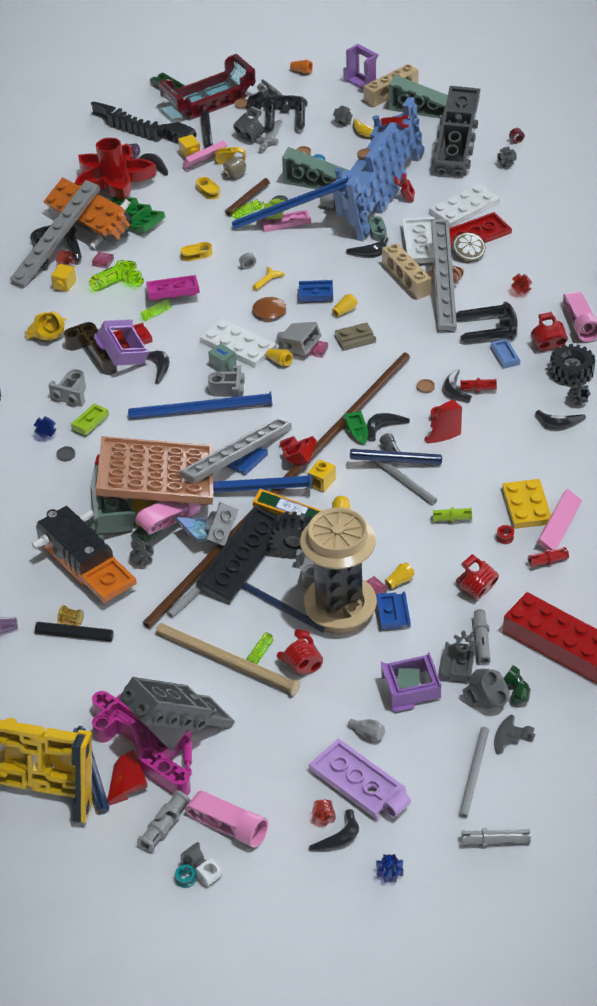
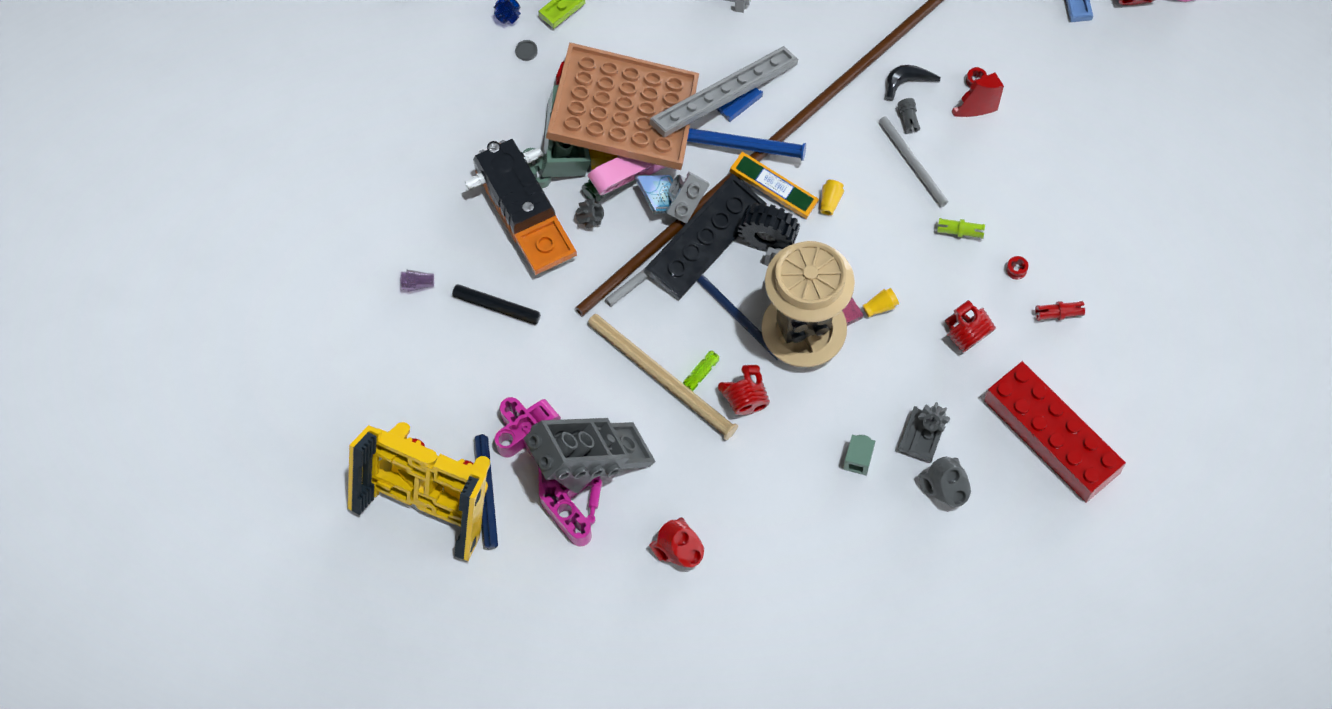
camera: 10 degrees right, 20 degrees up
(70, 616) = (495, 283): clear yellow bush -> none
(126, 778) = (522, 512): red slope -> none
(163, 821) = (551, 579): light grey piece -> none
(187, 881) = (564, 641): teal bush -> none
(197, 406) = (695, 11): blue axle -> none
(206, 870) = (588, 648): leg -> none
(228, 818) = (640, 603): bright pink beam -> none
(270, 773) = (678, 544): none -> red piece
(298, 451) = (798, 100): red slope -> none
(322, 475) = (819, 142): yellow brick -> none
(323, 811) = (730, 600): clear red arm -> none
(342, 837) = (745, 637): black piece -> none
(355, 775) = (774, 561): lavender hinge -> none
(357, 426) = (875, 78): green plate -> none
(368, 728) = (802, 503): light grey piece -> none
(389, 868) = (791, 694): clear blue gear -> none
(393, 610) = (863, 349): blue plate -> none
(394, 456) = (911, 133): dark blue axle -> none
(406, 698) = (854, 474): medium lavender piece -> none
(425, 386) = (970, 31): medium nougat piece -> none
(452, 389) = (1000, 41): black piece -> none
(474, 771) = (909, 582): light grey piece -> none
(481, 630) = (958, 399): light grey pin -> none
(483, 384) = (1034, 44): red pin -> none
(495, 837) = (914, 672): light grey pin -> none
(510, 734) = (961, 541): dark grey piece -> none
(521, 689) = (987, 487): dark green arm -> none
(526, 503) = (1053, 228): yellow plate -> none
(559, 422) = (1118, 117): black piece -> none
(559, 520) = (1085, 262): bright pink tile -> none
(572, 364) = (1158, 25): black bush -> none
(579, 393) = (1152, 82): black gear -> none

